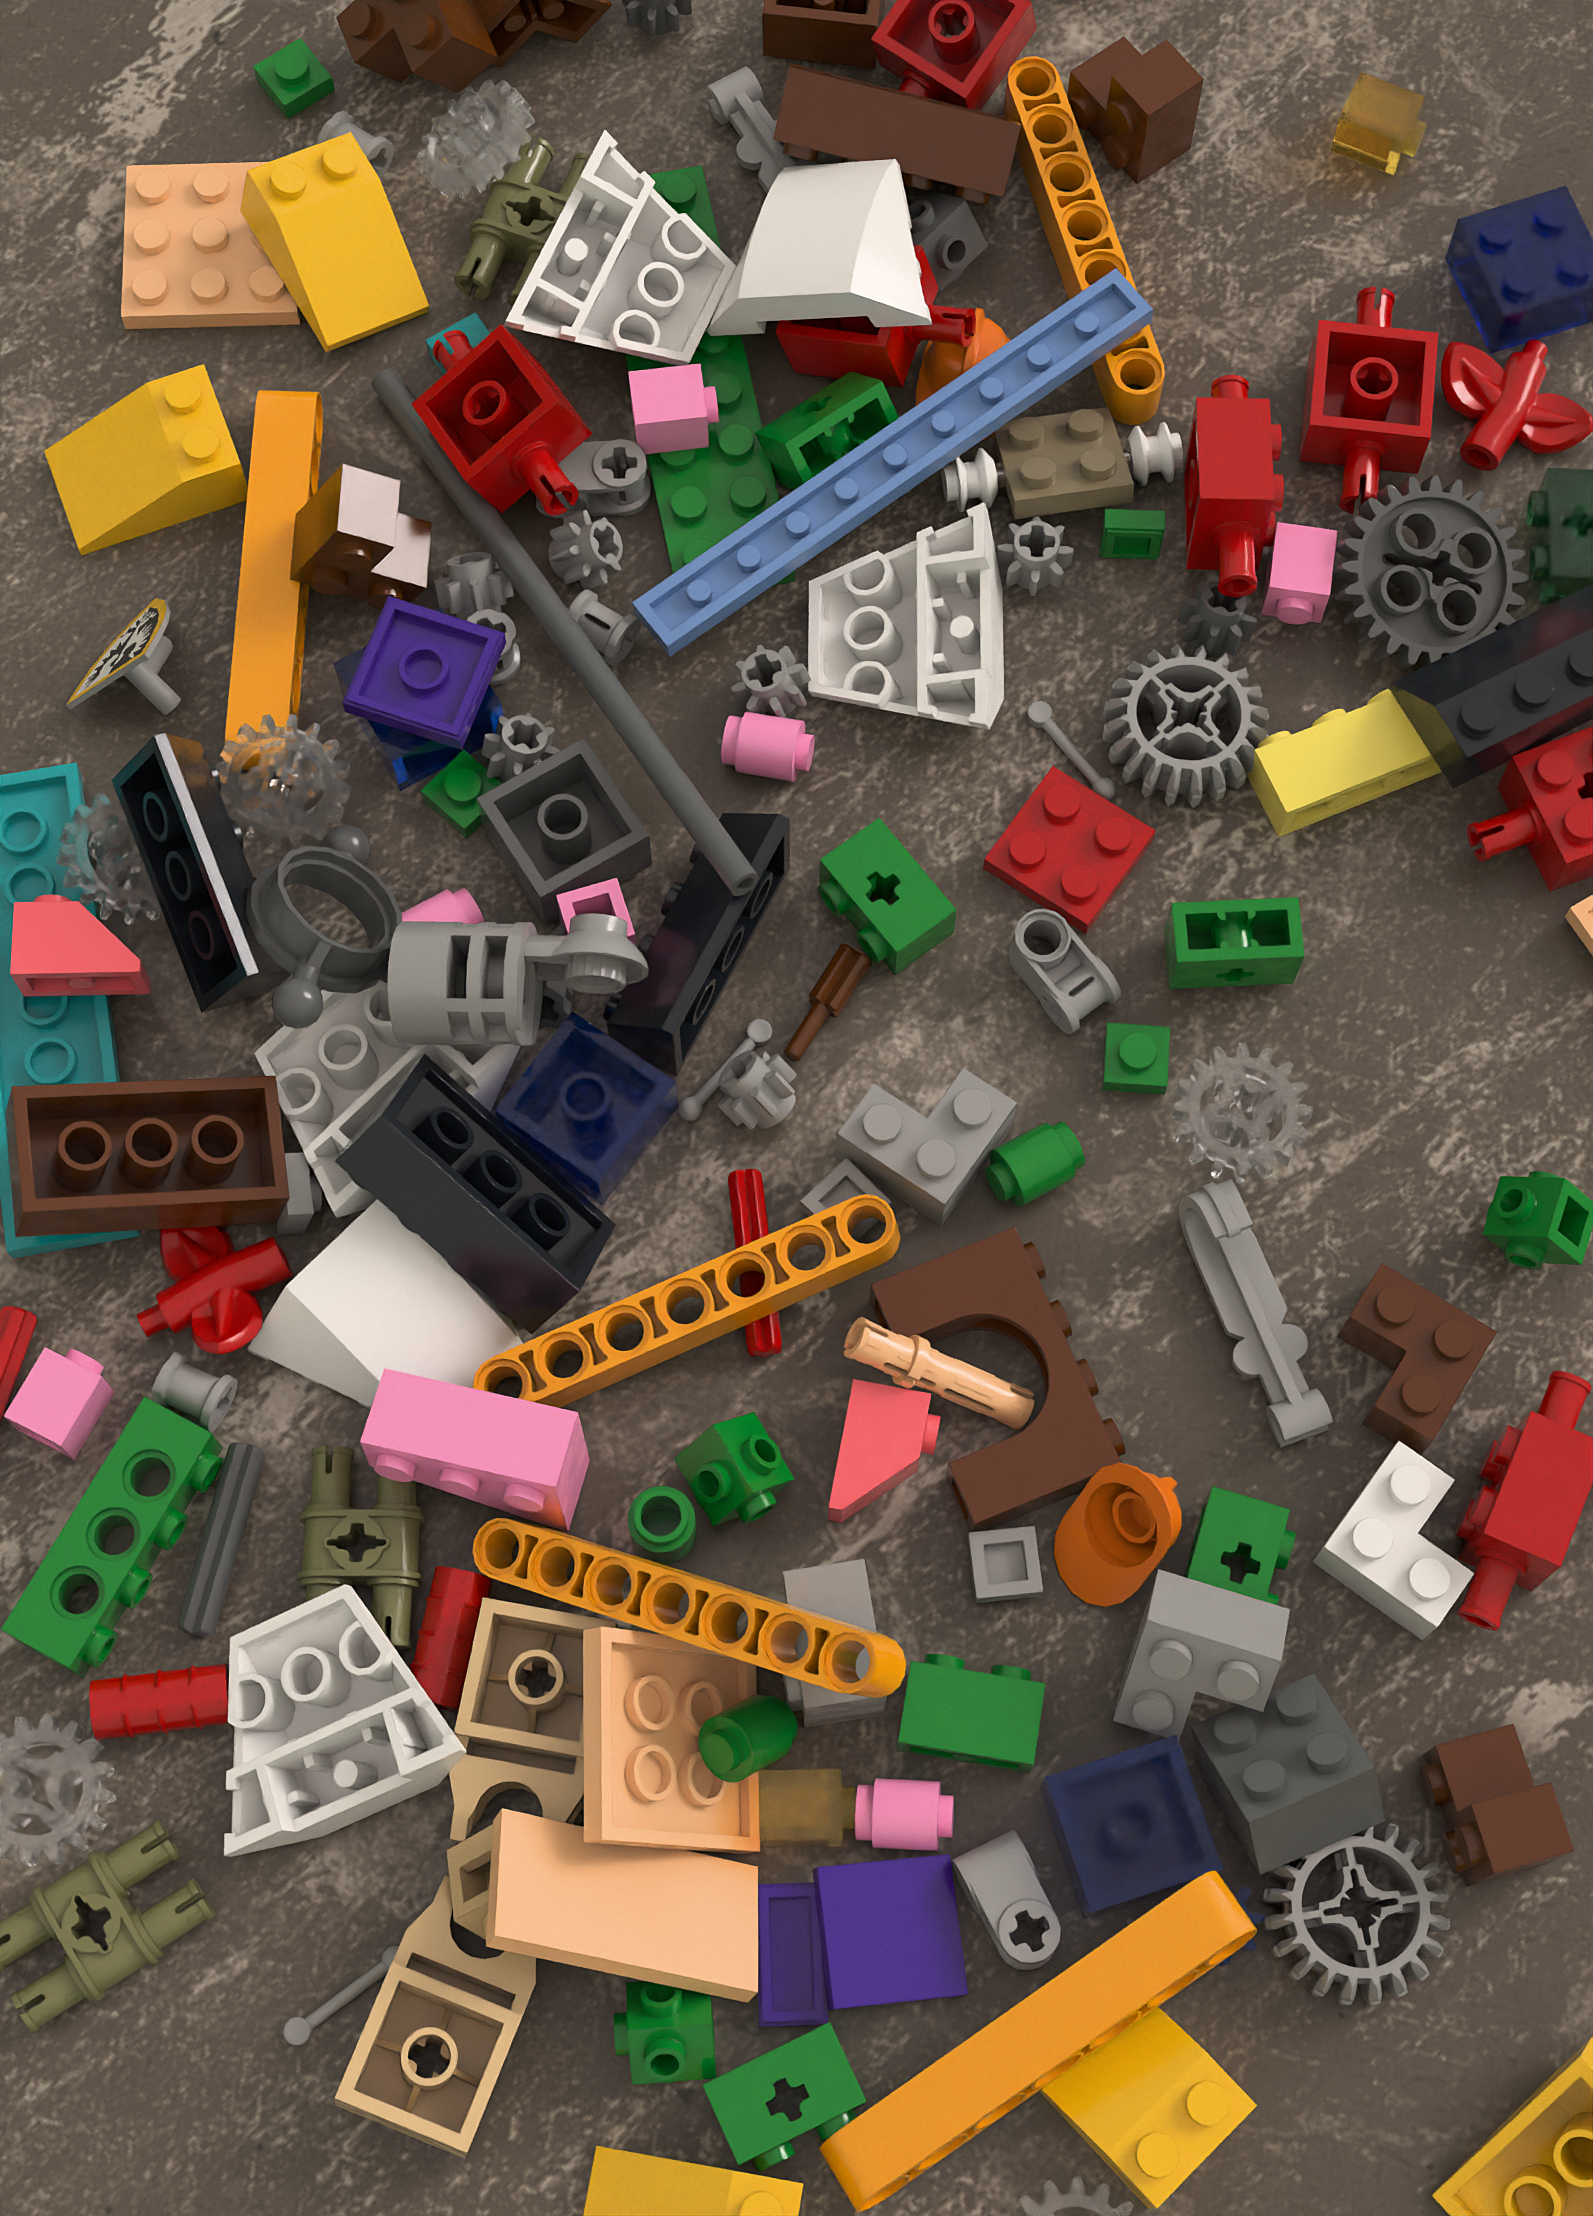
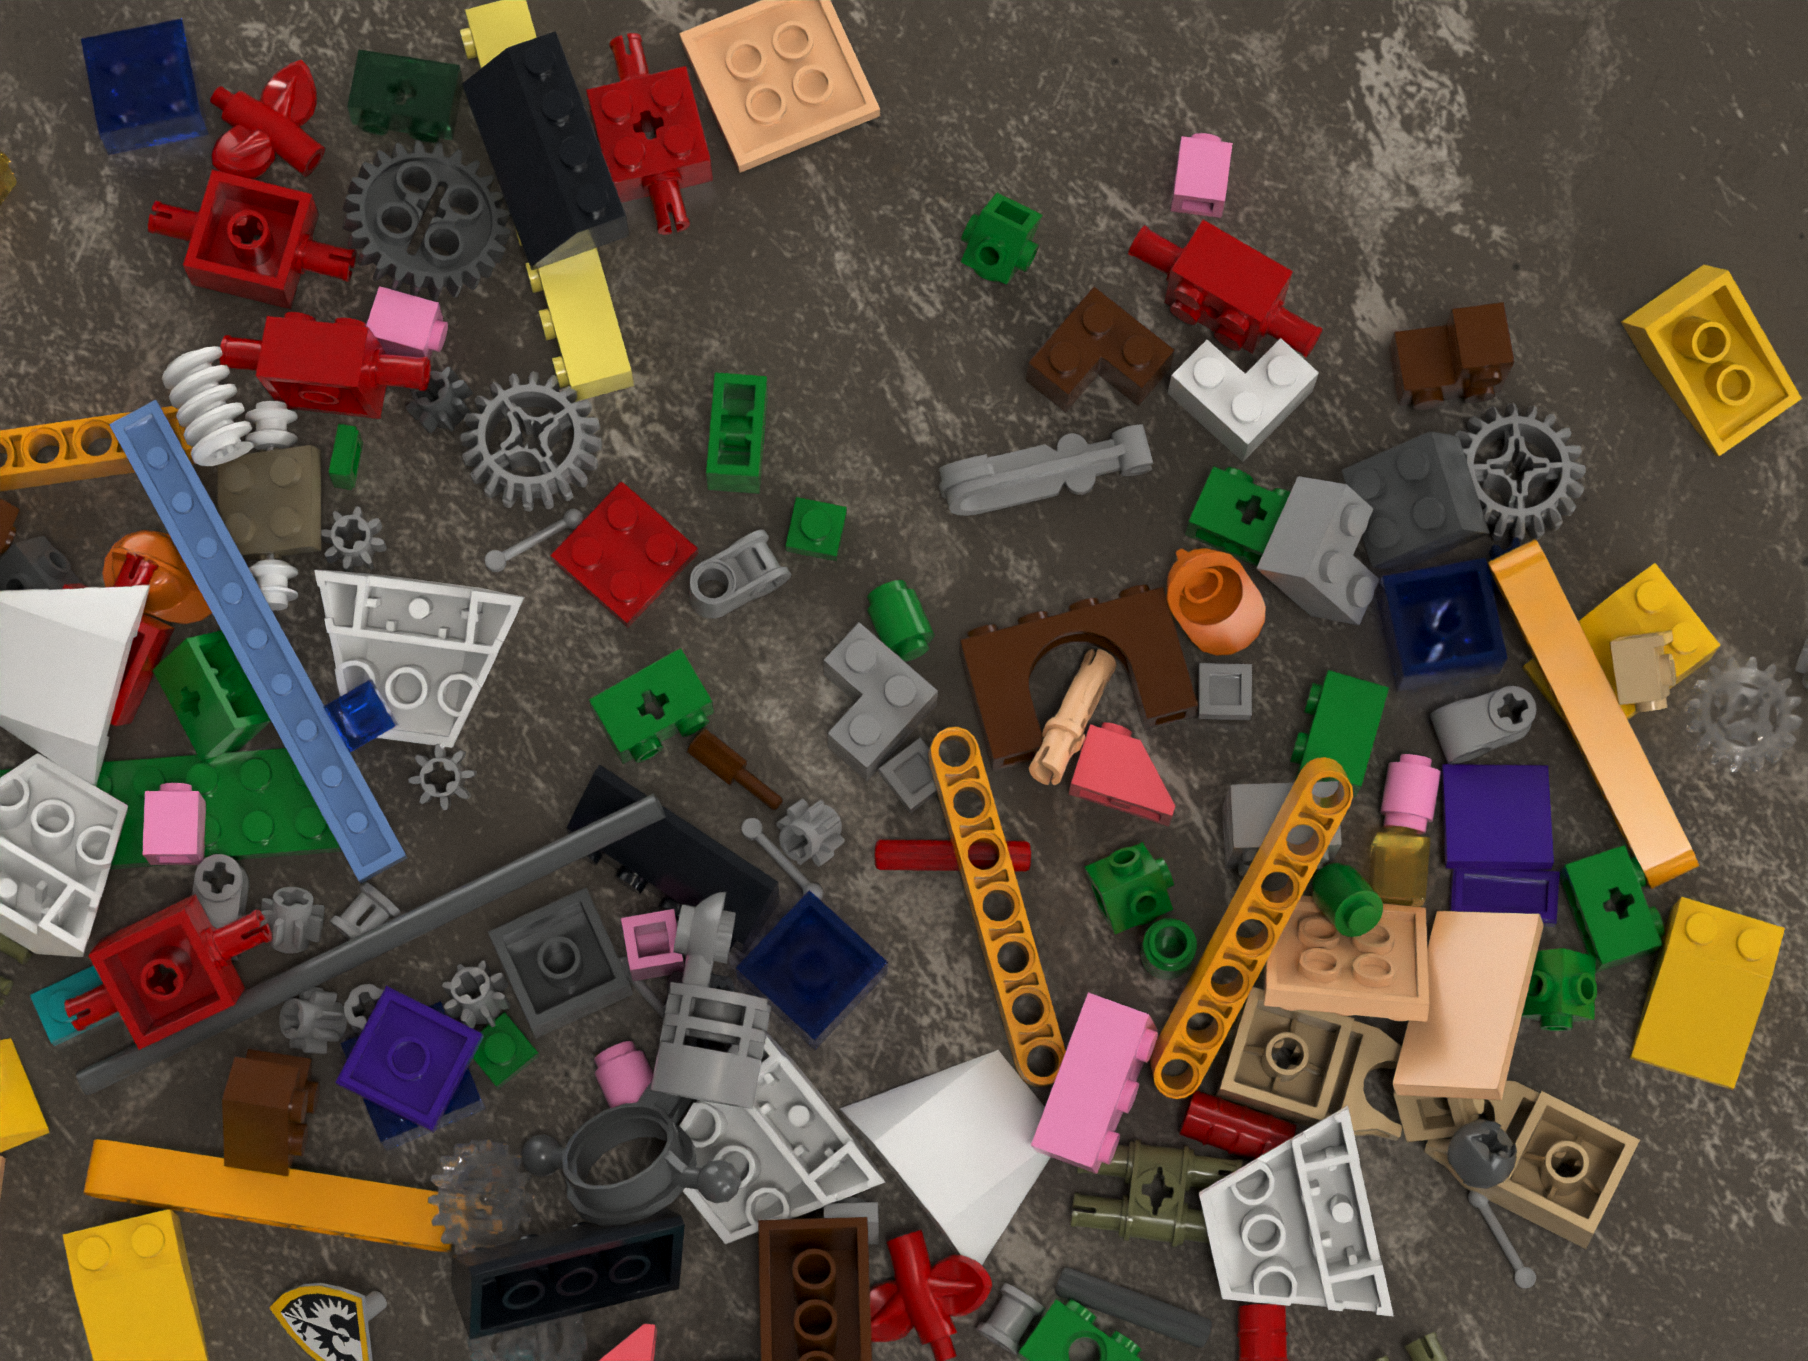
camera: 85 degrees left, 5 degrees up
(424, 1937) = (1482, 1154): none -> dark grey piece
(477, 1195) = (882, 1063): black slope -> none
(767, 746) = (498, 787): bright pink brick -> none
(822, 575) = (360, 715): none -> clear blue tile
(1102, 2097) = (1643, 670): none -> tan brick
(1154, 357) = (204, 407): none -> white piece
(1235, 1086) = (859, 458): clear gear -> none

